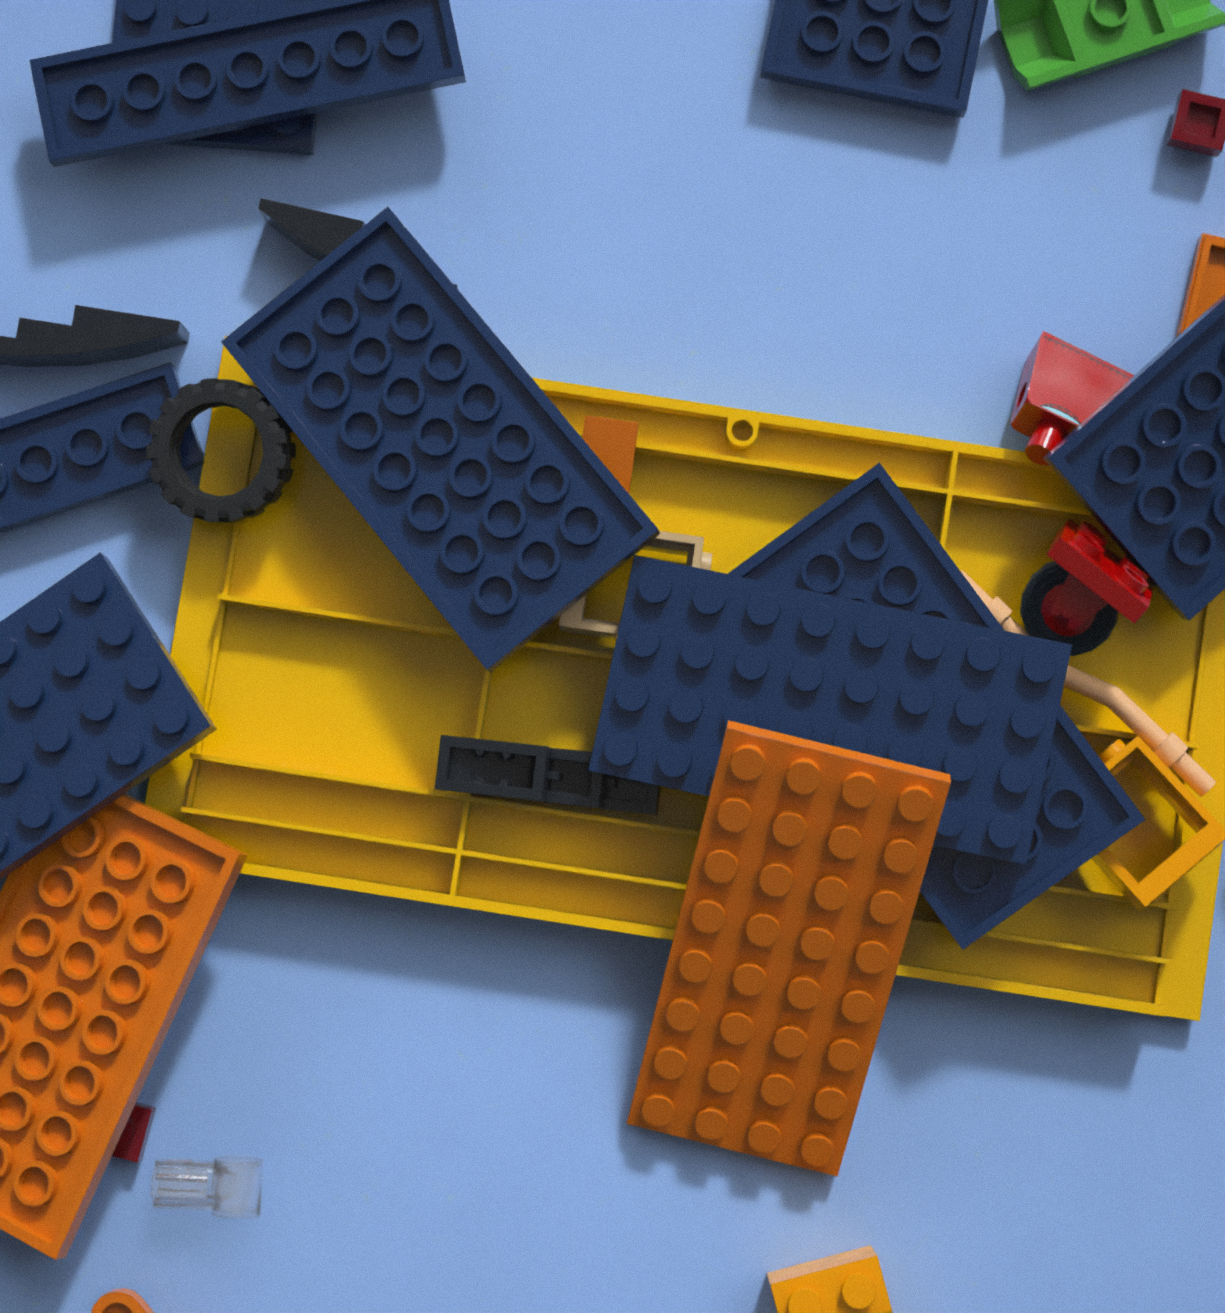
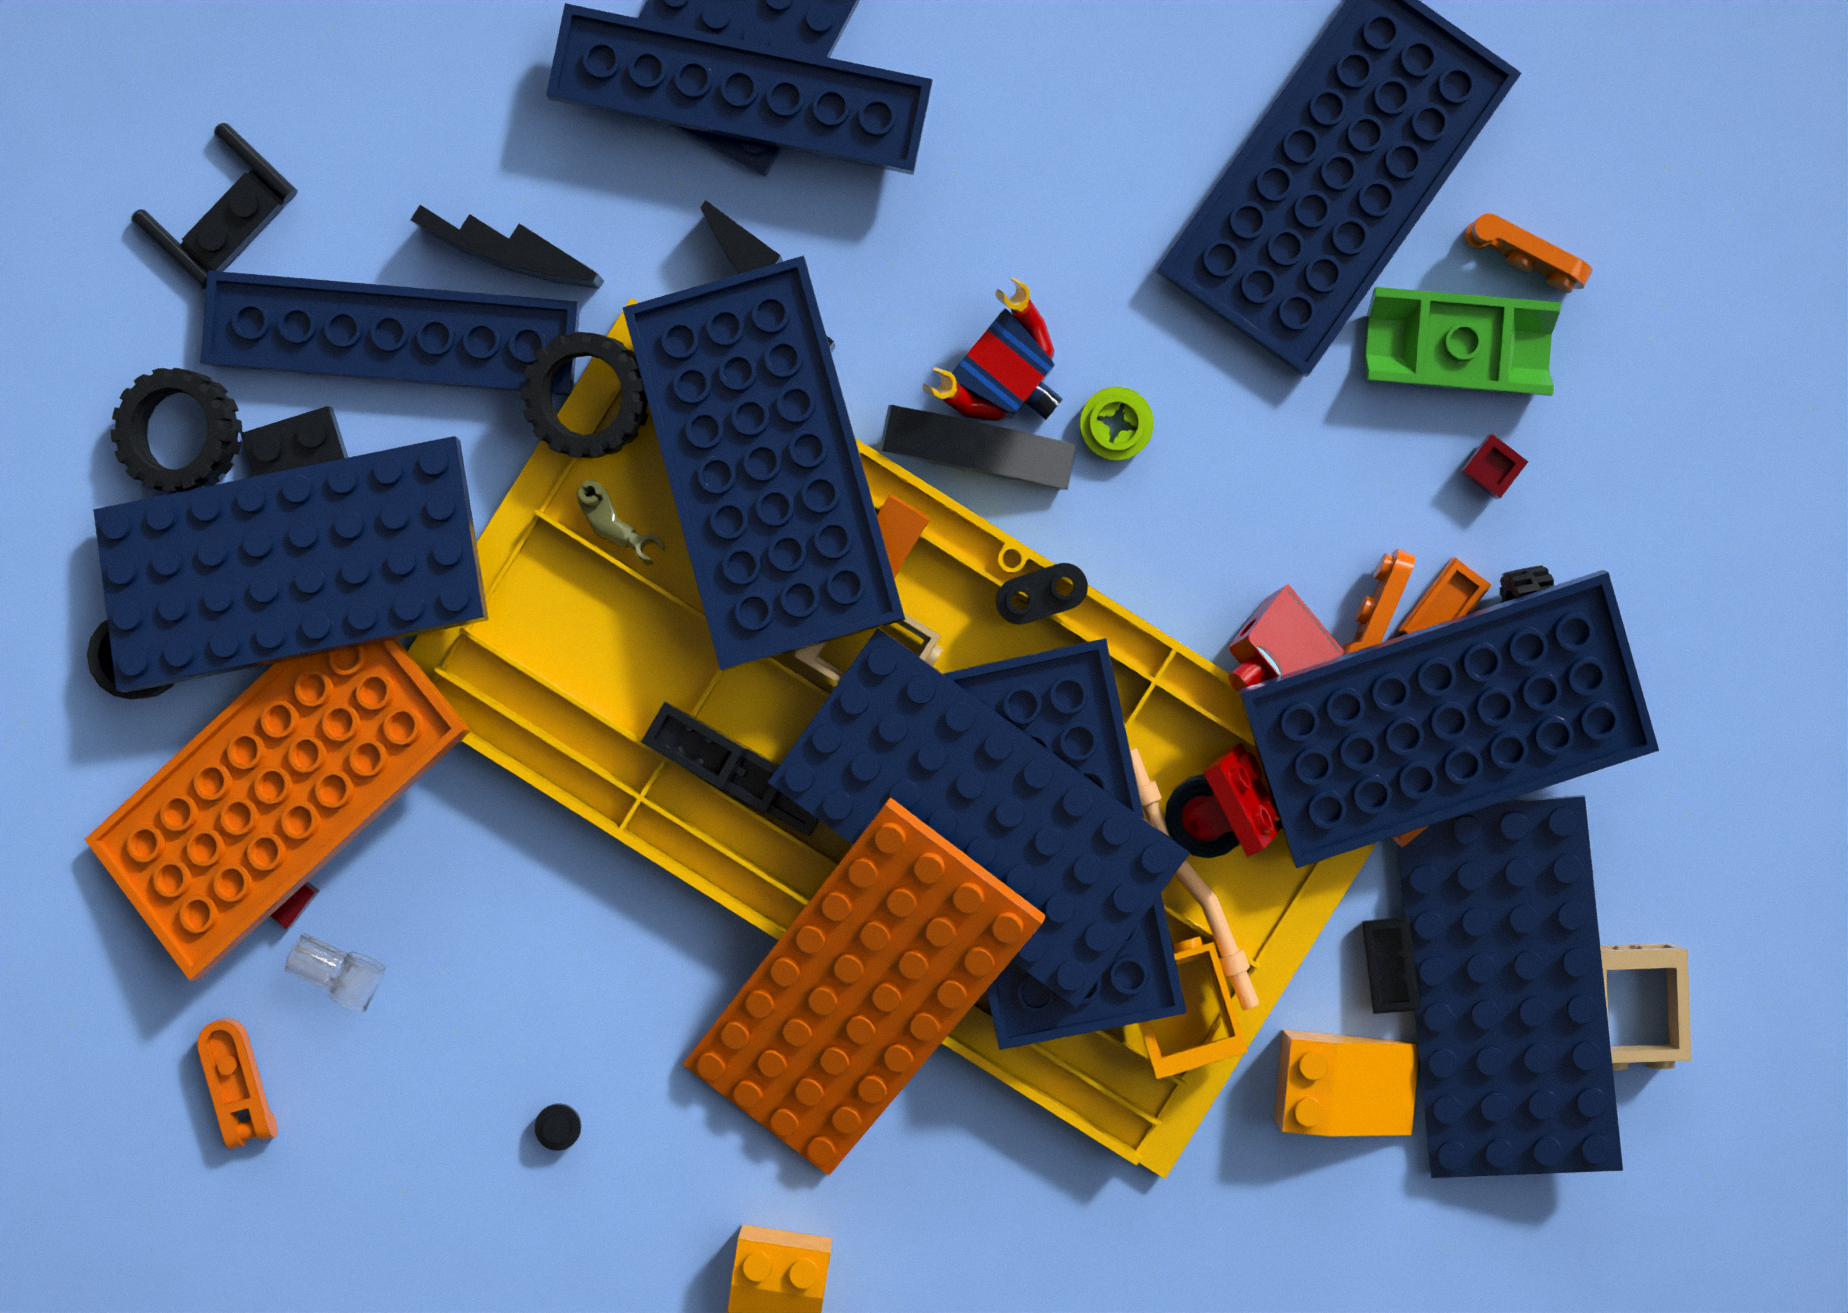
camera: 15 degrees right, 5 degrees up
(300, 578) = (606, 524): none -> olive arm
(521, 1251) = (558, 1126): none -> black plate
(645, 236) = (1004, 365): none -> torso
(654, 332) = (977, 447): none -> black slope
(791, 450) = (1041, 593): none -> black plate
(804, 230) = (1135, 413): none -> lime gear
(1149, 320) = (1377, 611): none -> orange plate

